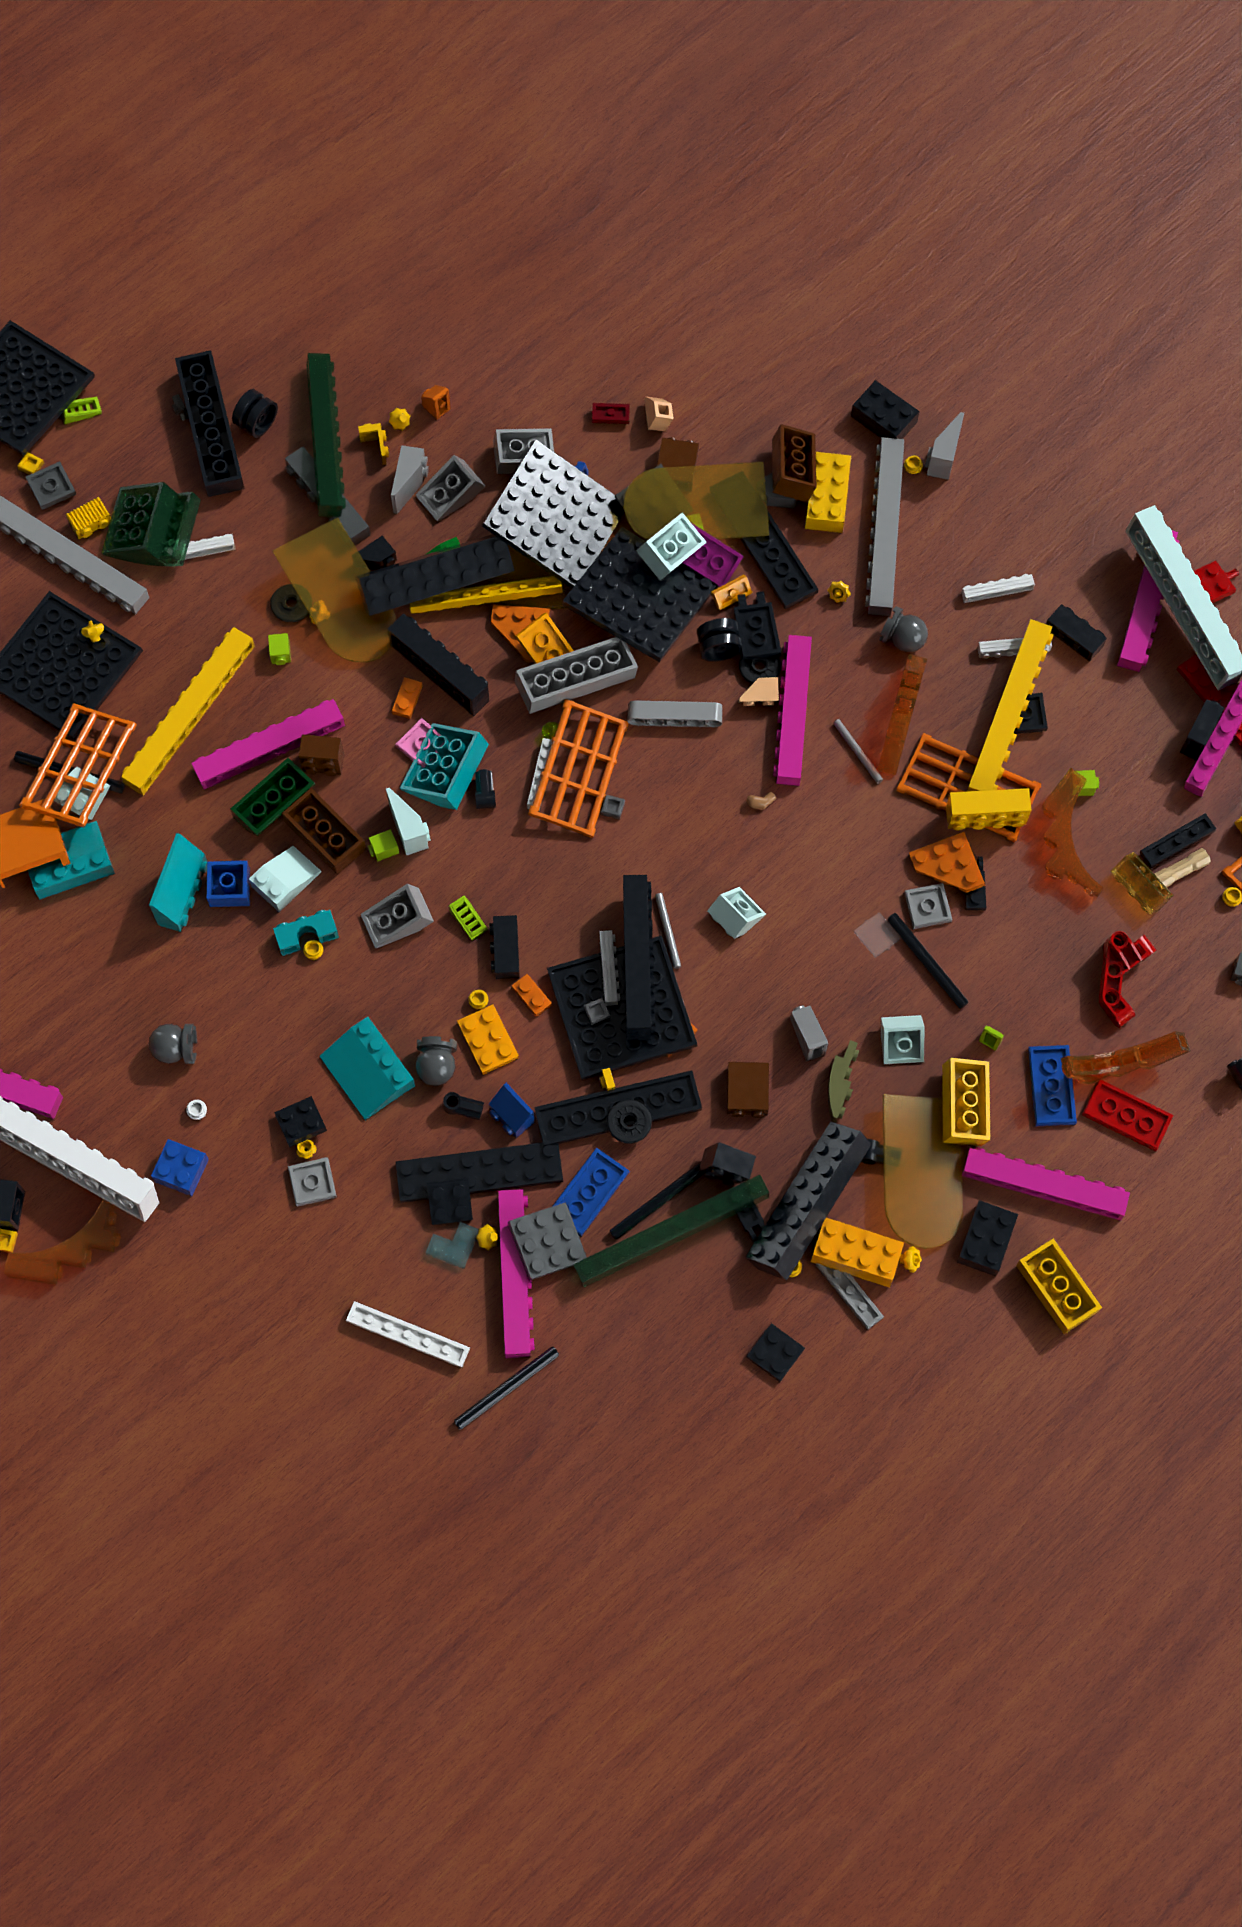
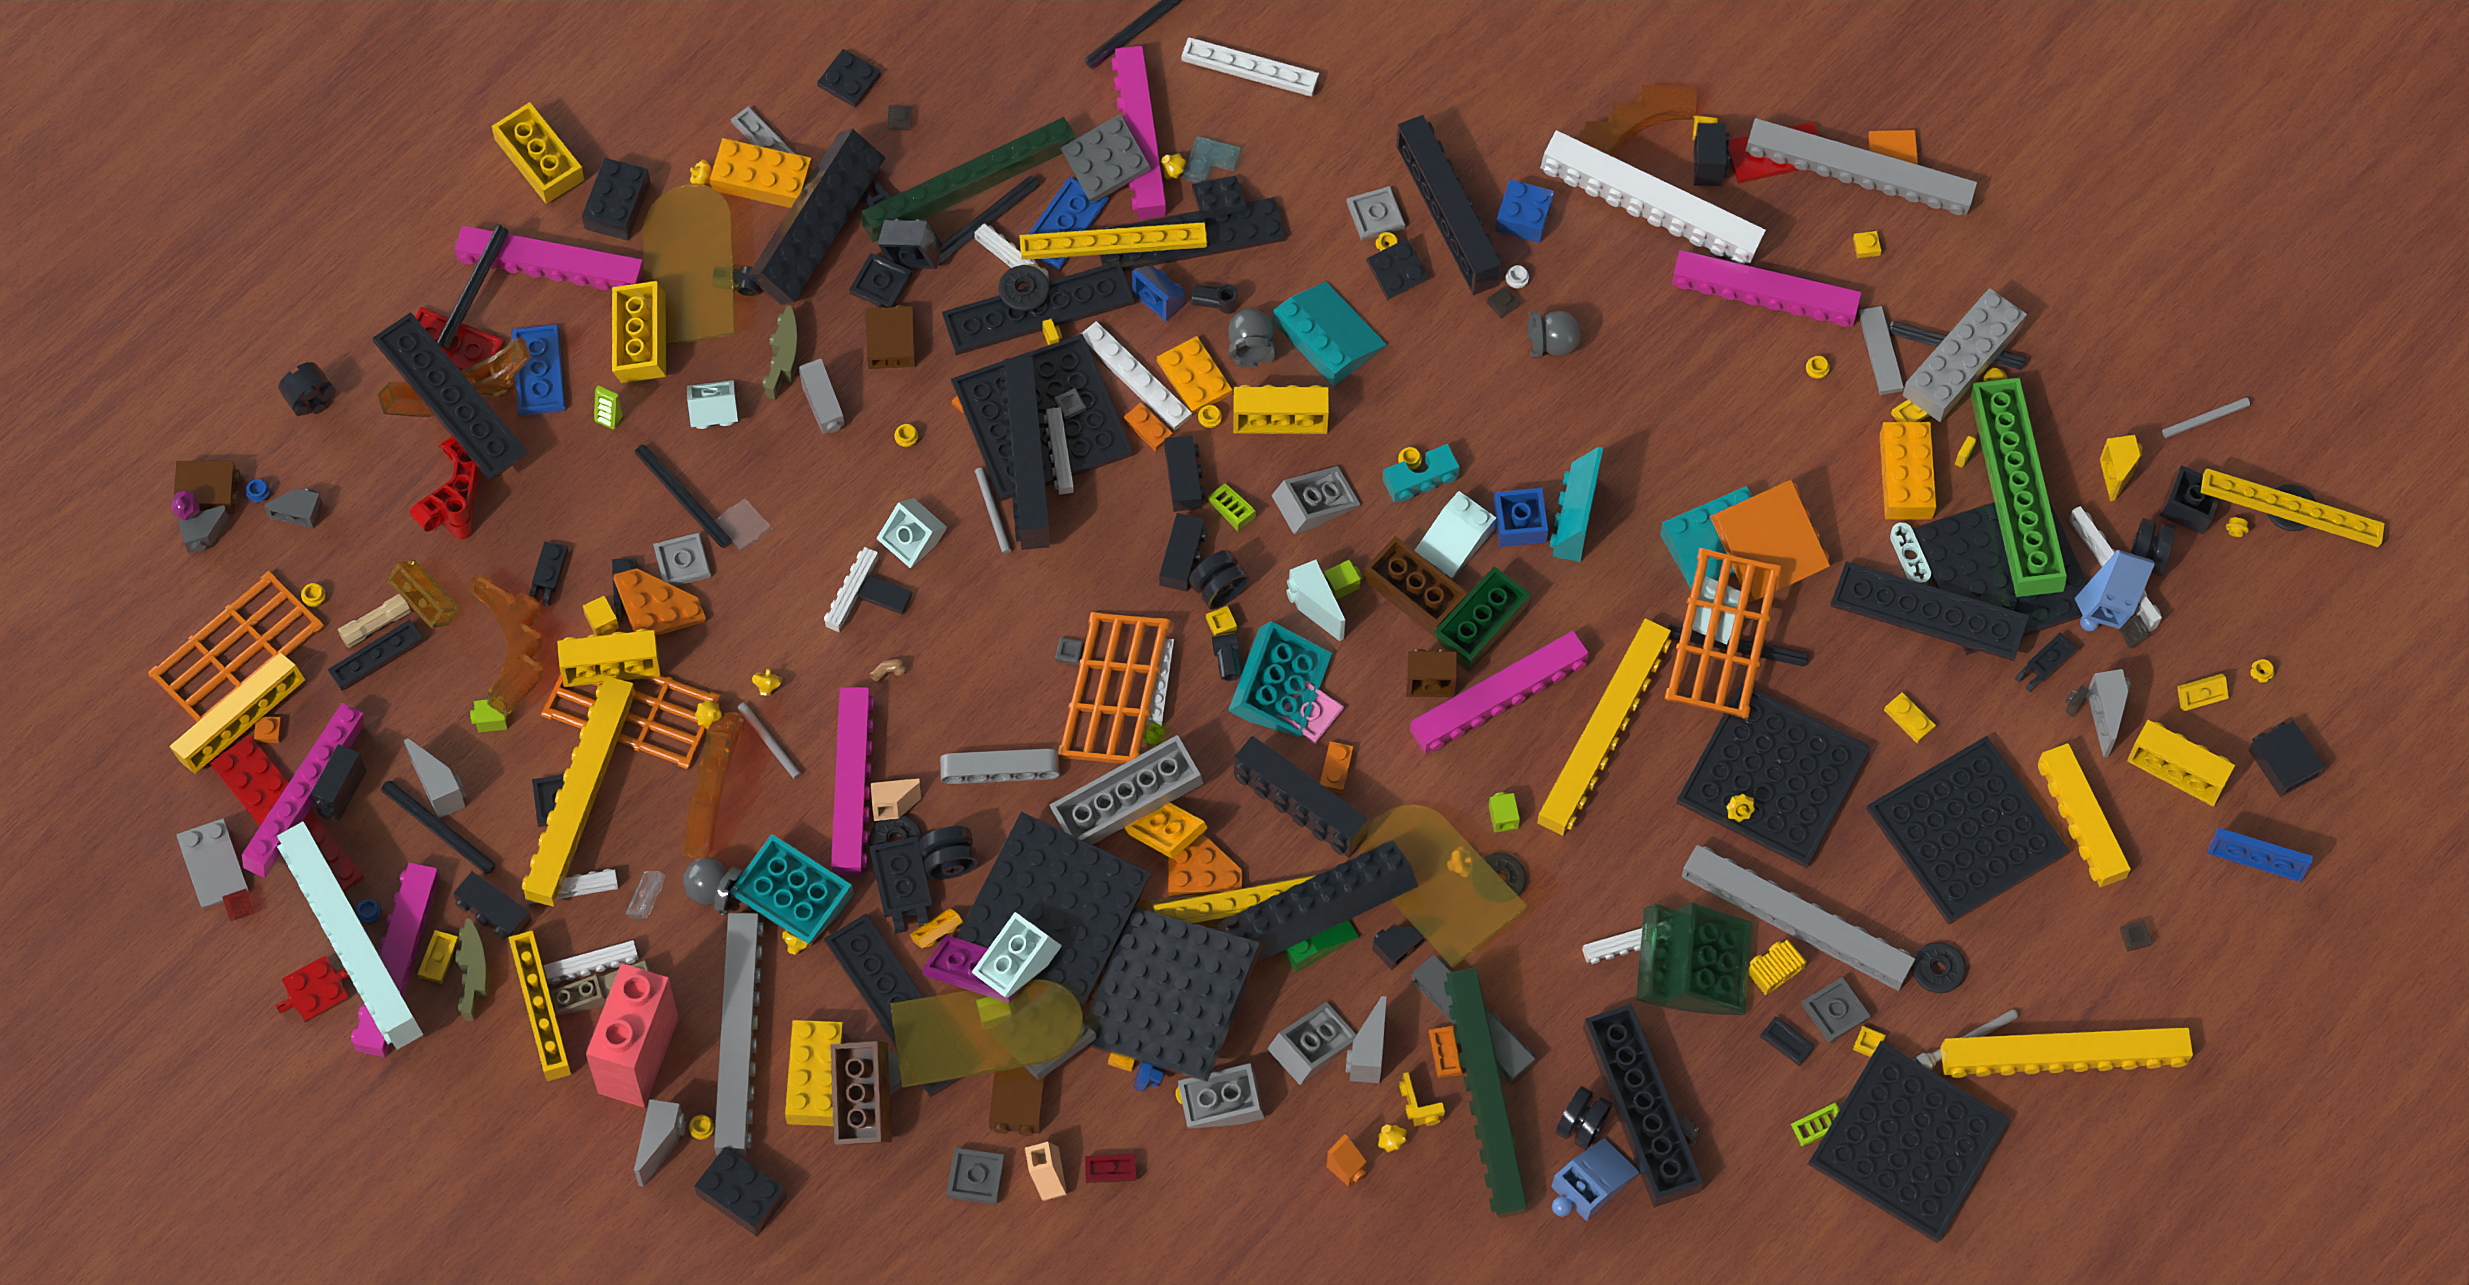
camera: 175 degrees right, 5 degrees down
(92, 469) = (1787, 1041): none -> black tile
(212, 1087) = (1503, 302): none -> clear smoke plate
(246, 1170) = (1448, 204): none -> black brick
(250, 375) = (1591, 1180): none -> medium blue slope
(351, 477) = (1445, 1052): none -> orange plate
(417, 990) = (1280, 409): none -> yellow brick
(484, 844) = (1219, 579): none -> black wheel
(486, 819) = (1221, 621): none -> yellow plate
(512, 878) = (1182, 551): none -> black brick
(538, 1042) = (1136, 376): none -> white plate
(547, 1158) = (1113, 241): none -> yellow plate
(640, 1163) = (1002, 249): none -> white piece
(710, 415) = (975, 1176): none -> dark grey plate
(731, 1308) = (899, 117): none -> clear smoke plate
(737, 1001) = (906, 435): none -> yellow plate
(756, 1140) = (880, 281): none -> black plate
(760, 864) = (885, 594): none -> black tile
(787, 871) = (849, 593): none -> white piece
(841, 622) = (792, 890): none -> teal slope
(859, 795) = (766, 682): none -> yellow piece
(906, 766) = (707, 712): none -> yellow piece
(956, 633) = (645, 895): none -> clear plate
(966, 500) = (632, 1035): none -> coral brick
(989, 566) = (586, 993): none -> dark tan slope
(994, 857) = (601, 617): none -> yellow brick
(1037, 552) = (539, 1006): none -> yellow brick
(1039, 904) = (548, 570): none -> black hinge
(1087, 588) = (473, 963): none -> olive slope
(1112, 1154) = (472, 287): none -> black axle
(1115, 599) = (438, 957): none -> yellow plate
(1122, 701) = (438, 827): none -> black axle
(1125, 727) = (440, 785): none -> light grey slope
(1129, 1039) = (450, 396): none -> black plate
(1171, 639) = (368, 911): none -> blue plate

